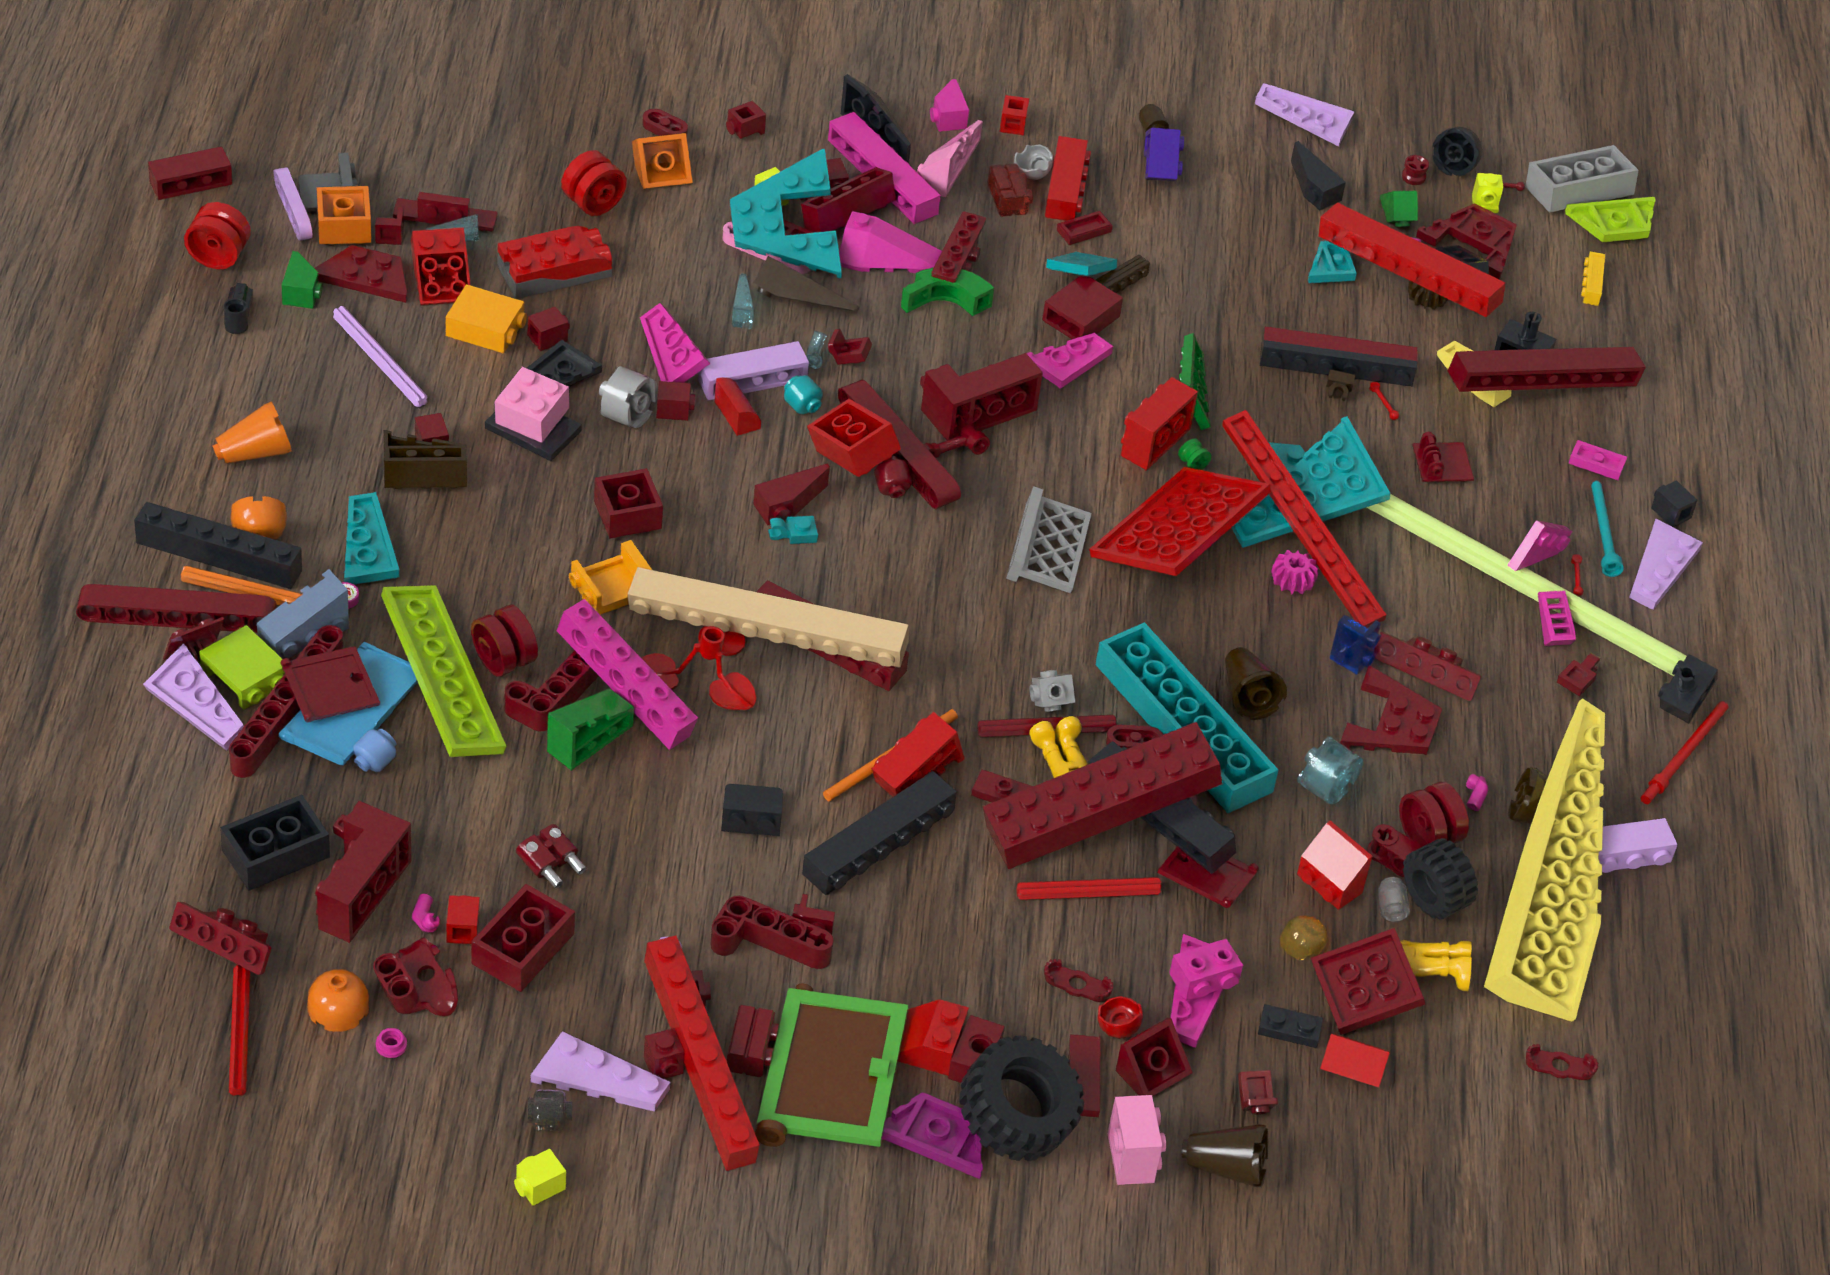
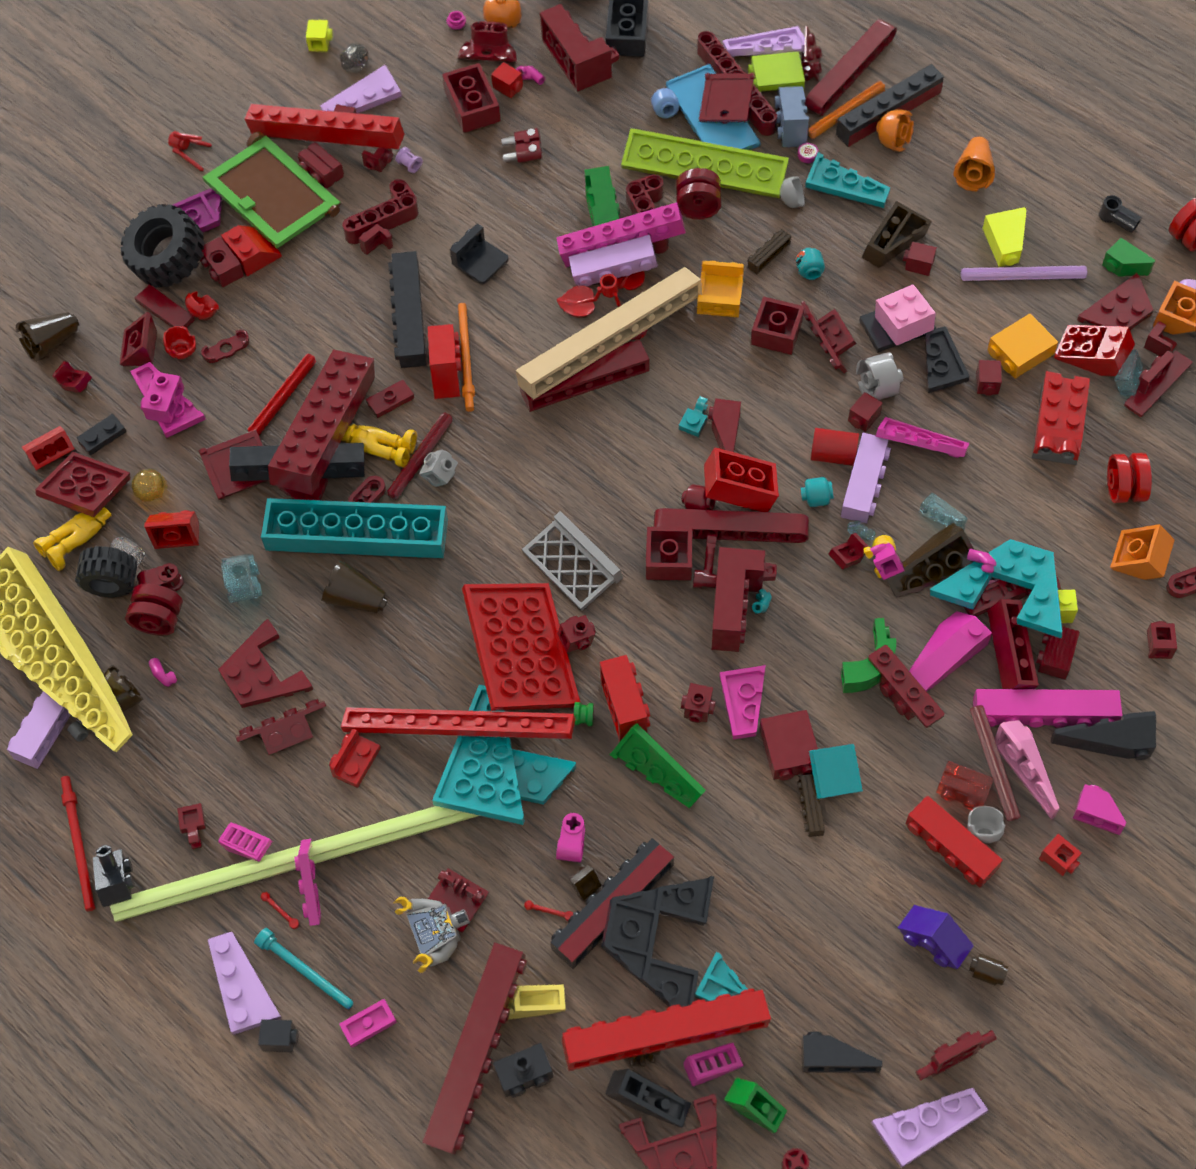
camera: 135 degrees right, 15 degrees up
(340, 381) = (1006, 235): none -> neon yellow slope
(427, 572) = (792, 192): none -> light grey hair
(514, 521) = (810, 263): none -> teal head
(522, 565) = (768, 251): none -> dark brown piece
(595, 462) = (834, 334): none -> dark red bracket
(675, 675) = (616, 259): none -> lavender brick
(778, 240) = (982, 557): none -> dark pink arm
(833, 313) = (887, 560): none -> dark pink piece
(838, 1223) = (181, 141): none -> red plant
(971, 174) = (995, 763): none -> dark red axle
(978, 464) = (669, 553): none -> dark red brick
(1053, 1025) = (201, 307): none -> red hair
(1084, 227) = (890, 822): dark red tile -> none
(1107, 379) = (698, 703): none -> dark red brick
(1125, 492) = (576, 633): none -> dark red brick
(1136, 1139) = (94, 288): bright pink brick -> none
(1245, 106) = (949, 1056): none -> dark red plate
(1294, 572) = (430, 690): dark pink gear -> none
(1313, 409) = (571, 842): none -> dark pink piece
(1355, 644) = (326, 673): clear blue bracket -> none
(1364, 315) = (632, 933): none -> black wing
(1402, 596) = (353, 758): none -> red bracket
(1486, 449) = (433, 929): none -> torso

